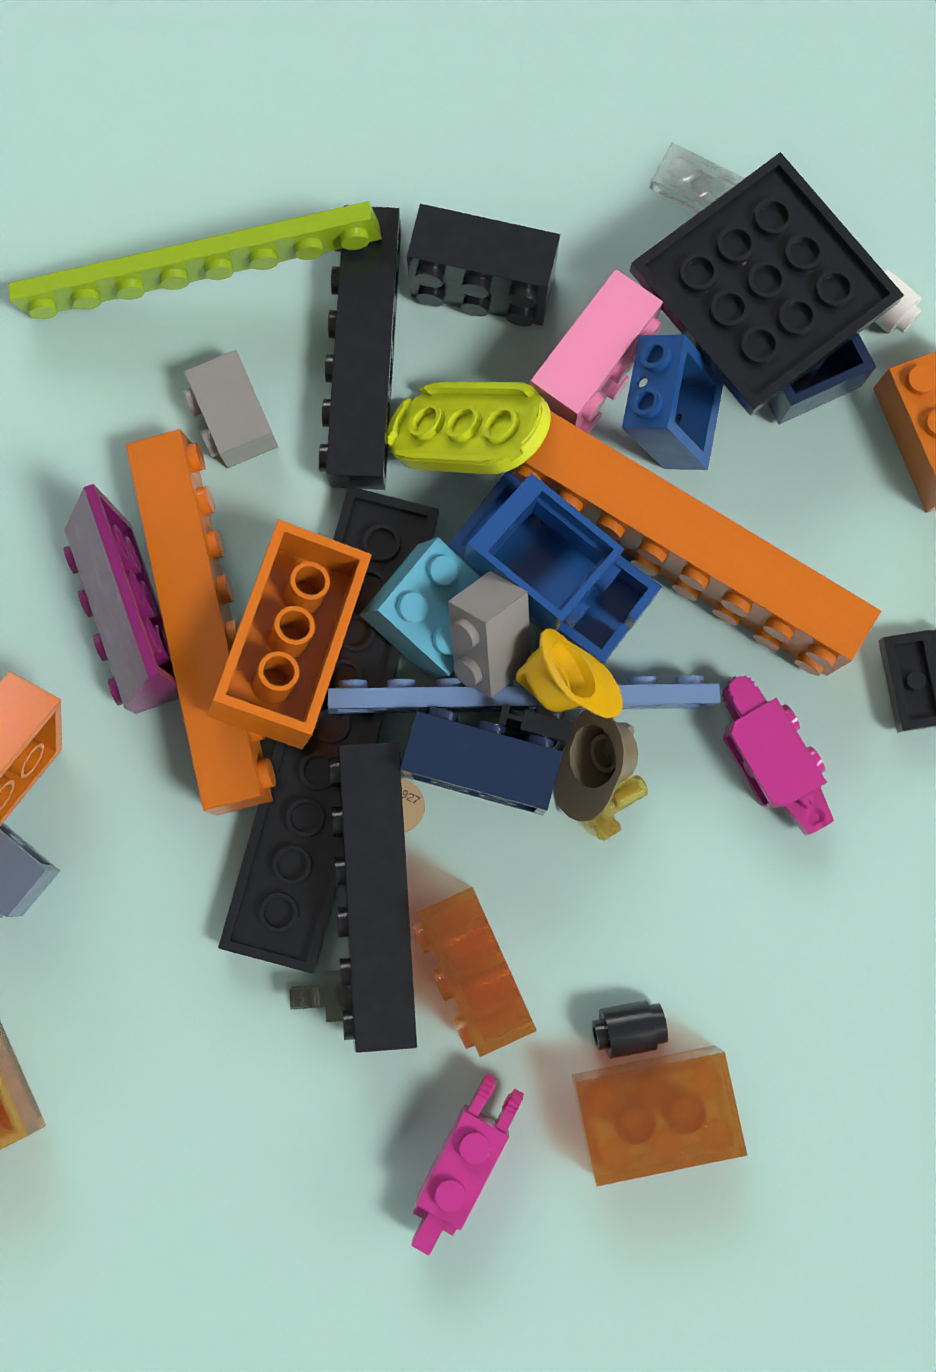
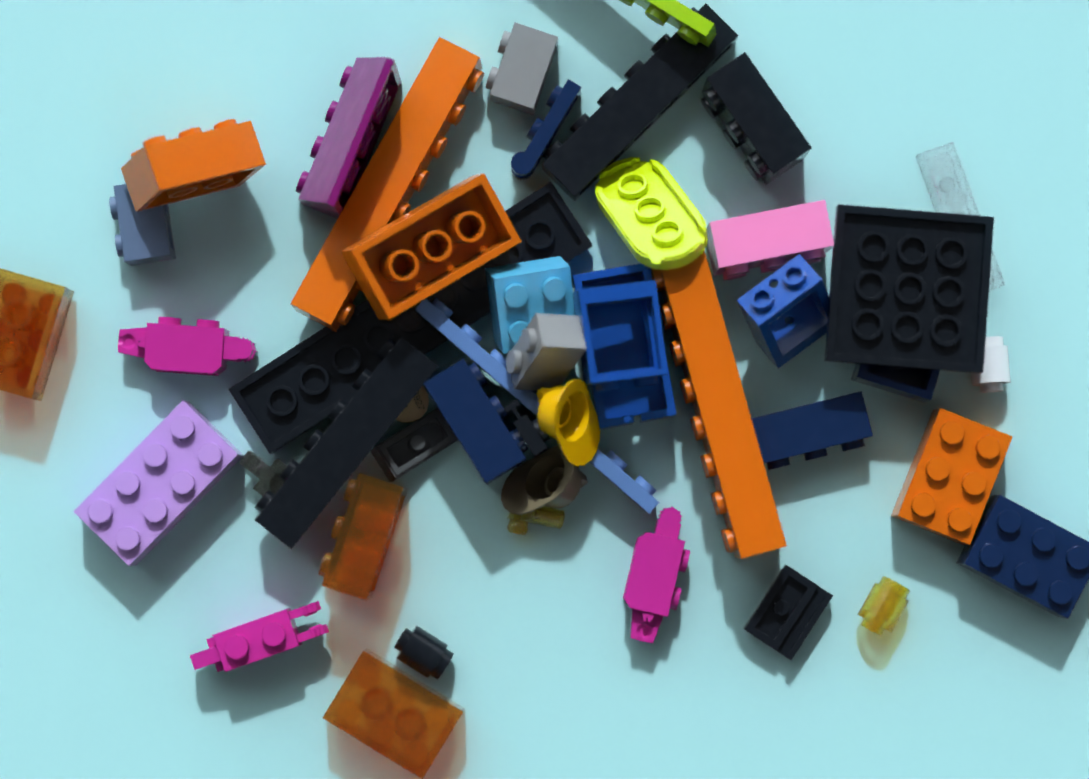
camera: 40 degrees right, 5 degrees up
(142, 947) = (185, 348): none -> dark pink hinge
(229, 1104) = (158, 483): none -> lavender brick
(301, 448) = (544, 131): none -> dark blue plate
(441, 841) = (414, 445): none -> dark grey slope
(794, 487) = (812, 429): none -> dark blue brick

